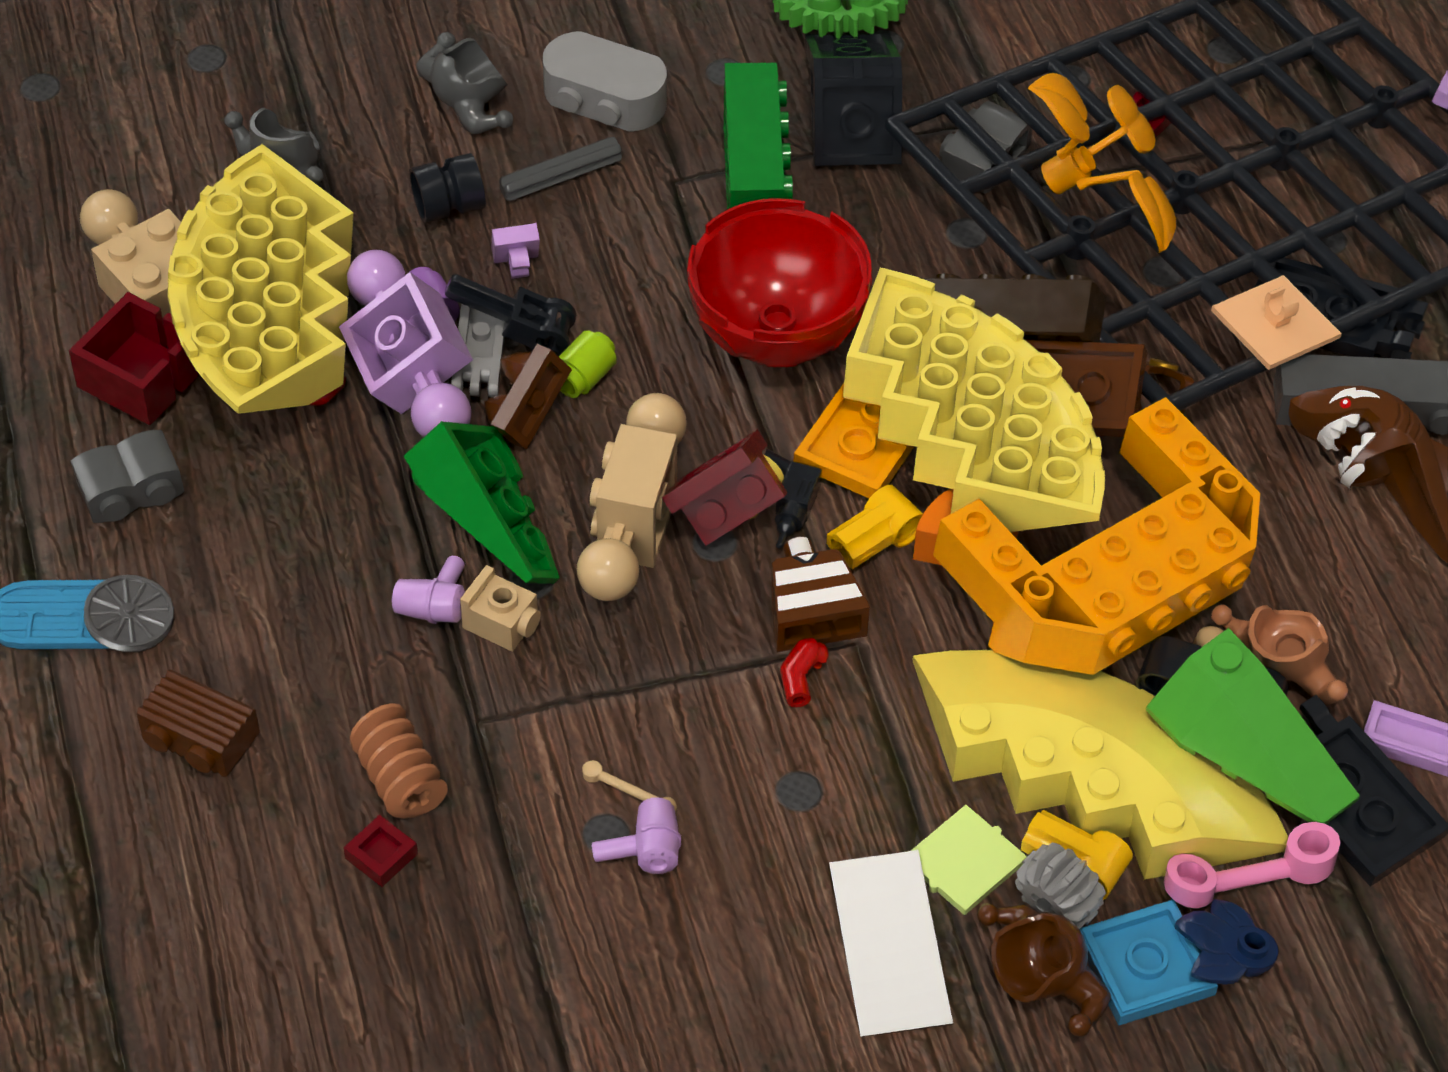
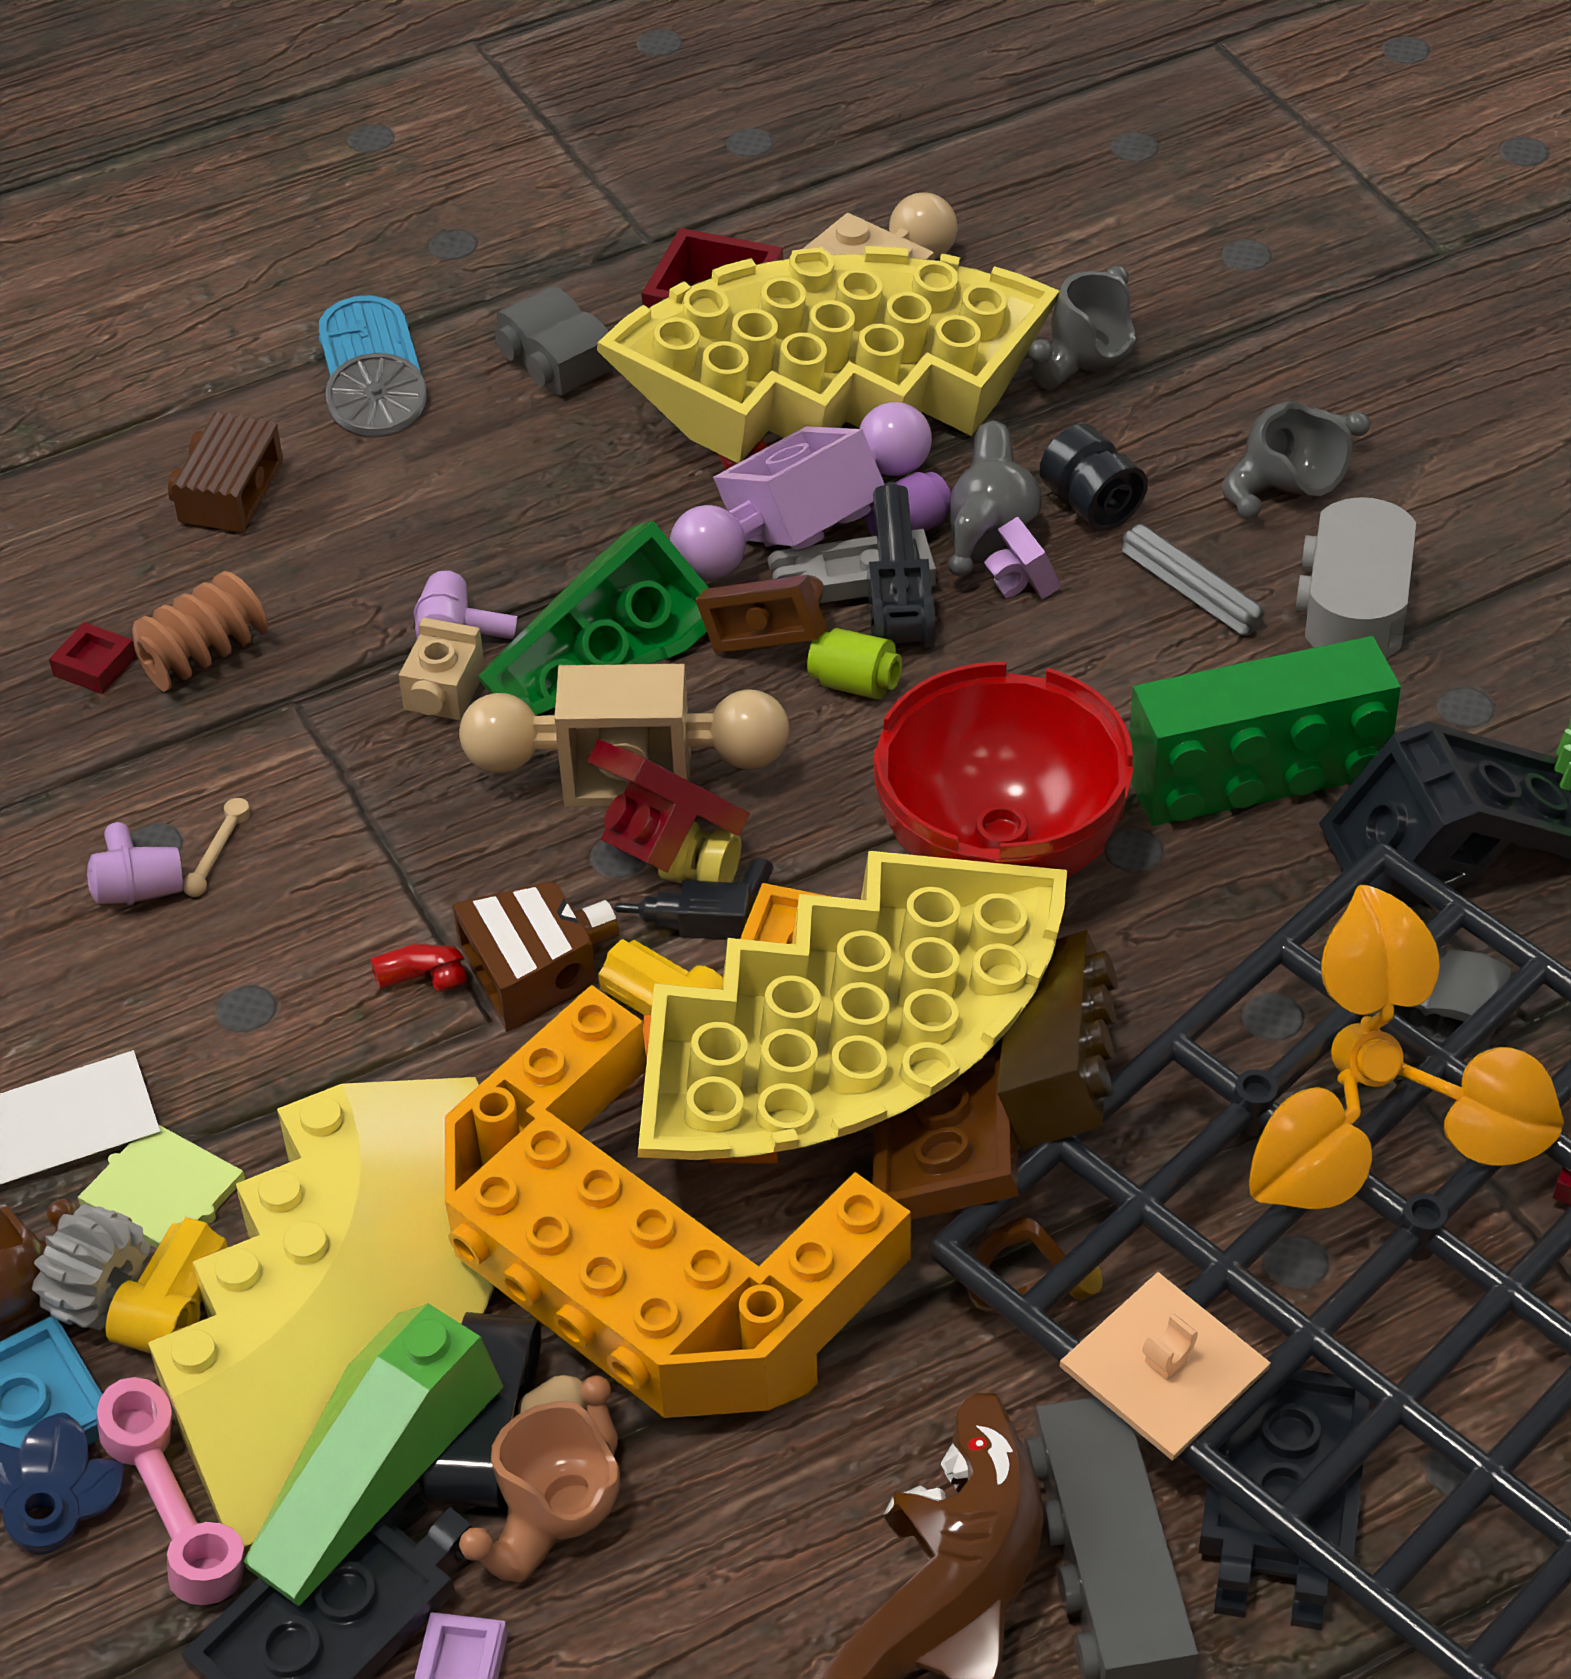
camera: 80 degrees right, 5 degrees down
(452, 245) = (988, 498): none -> dark grey piece

